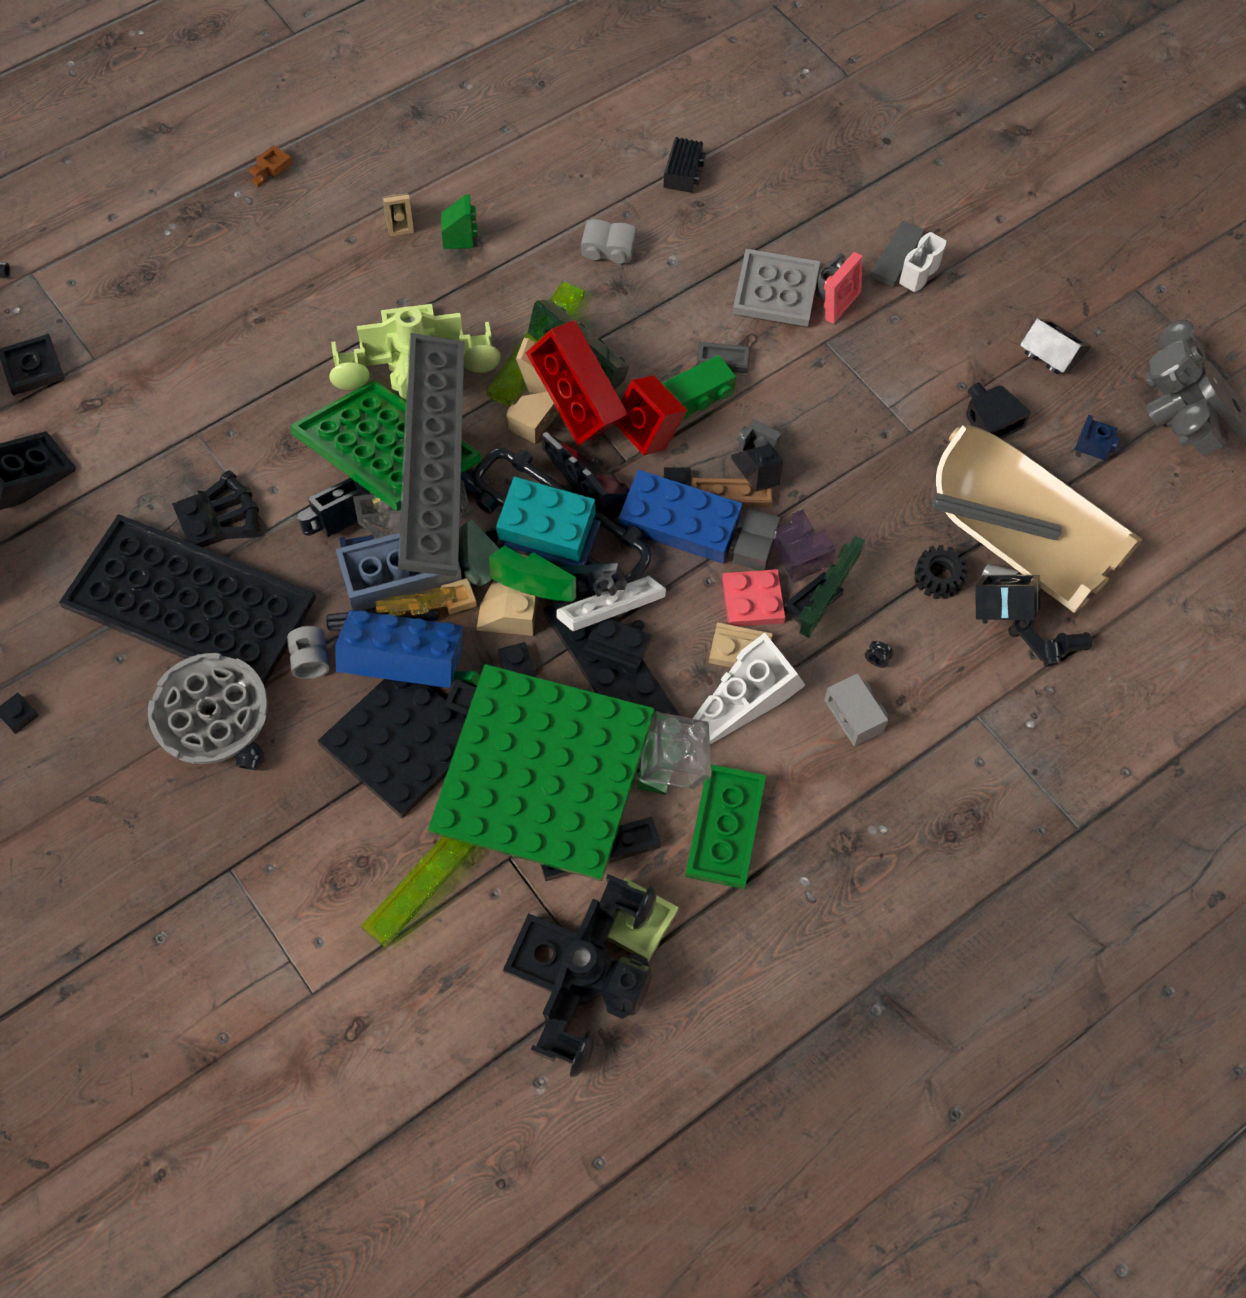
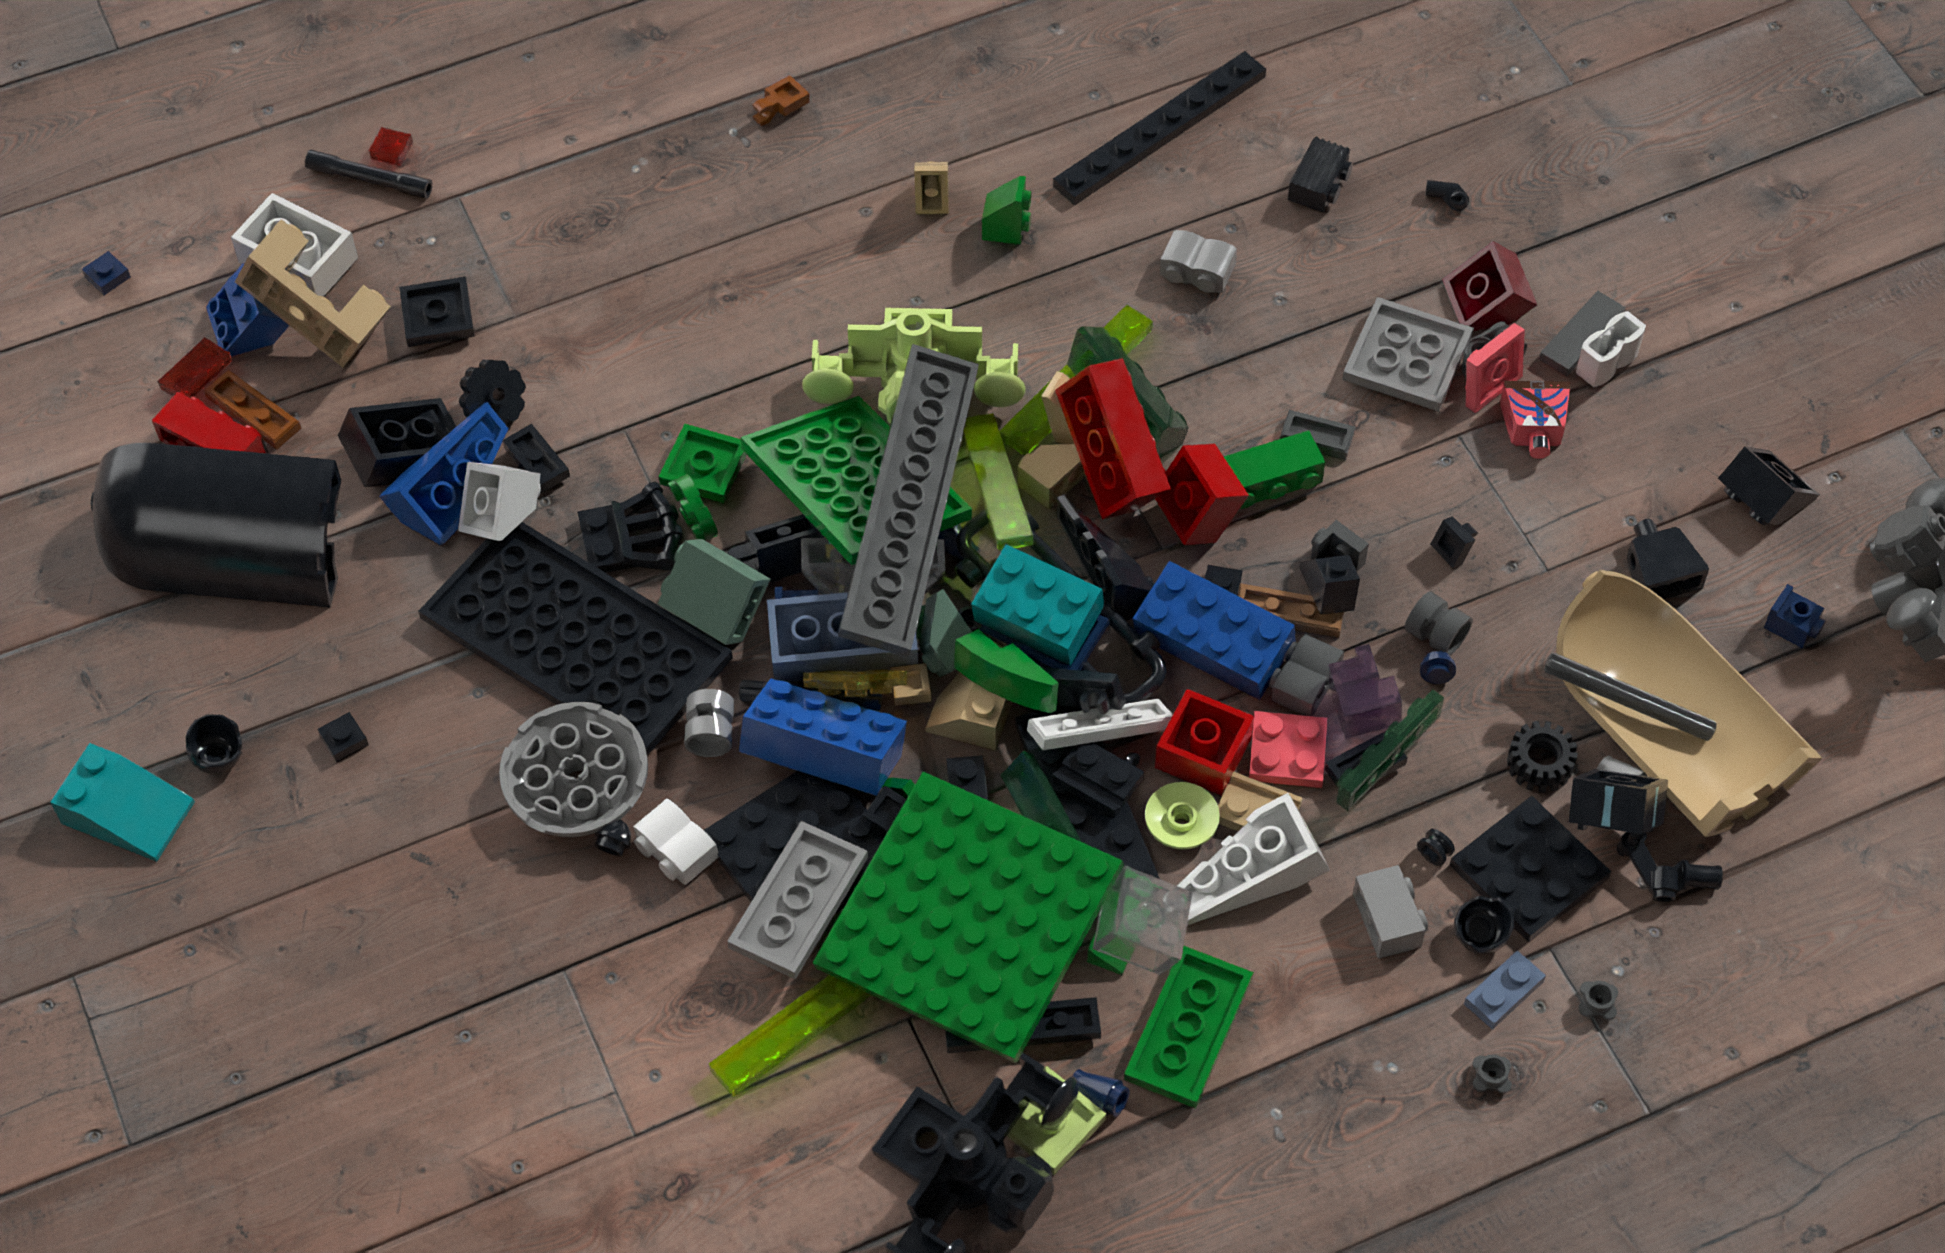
camera: 15 degrees right, 5 degrees down
(60, 497) = (431, 489): none -> blue wedge
(87, 421) = (493, 384): none -> black plant
(106, 504) = (497, 499): none -> white slope
(131, 466) = (536, 455): none -> black plate
(263, 450) = (707, 458): none -> green plate
(263, 487) = (693, 509): none -> green plate
(291, 548) = (713, 591): none -> sand green brick
(299, 751) = (675, 842): none -> white brick
(405, 782) = (797, 900): none -> light grey plate
(495, 431) = (996, 482): none -> clear neon green tile
(557, 148) = (1159, 128): none -> black plate
(573, 667) = (1035, 795): none -> clear green plate
(671, 889) = (1103, 1091): none -> dark blue cone
(686, 652) = (1185, 802): none -> yellowish green dish
(691, 603) = (1204, 742): none -> red brick
(780, 165) = (1450, 192): none -> black arm
(825, 231) = (1489, 288): none -> dark red slope
(841, 421) = (1454, 541): none -> black tile
(843, 484) = (1435, 622): none -> dark grey wheel
(850, 517) = (1437, 667): none -> dark blue plate
(878, 317) = (1535, 414): none -> torso
(928, 707) = (1484, 924): none -> black hair
(950, 658) = (1531, 867): none -> black plate
(952, 754) = (1504, 990): none -> sand blue plate
(958, 812) = (1495, 1064): none -> dark grey plate
(1025, 742) = (1602, 990): none -> dark grey plate

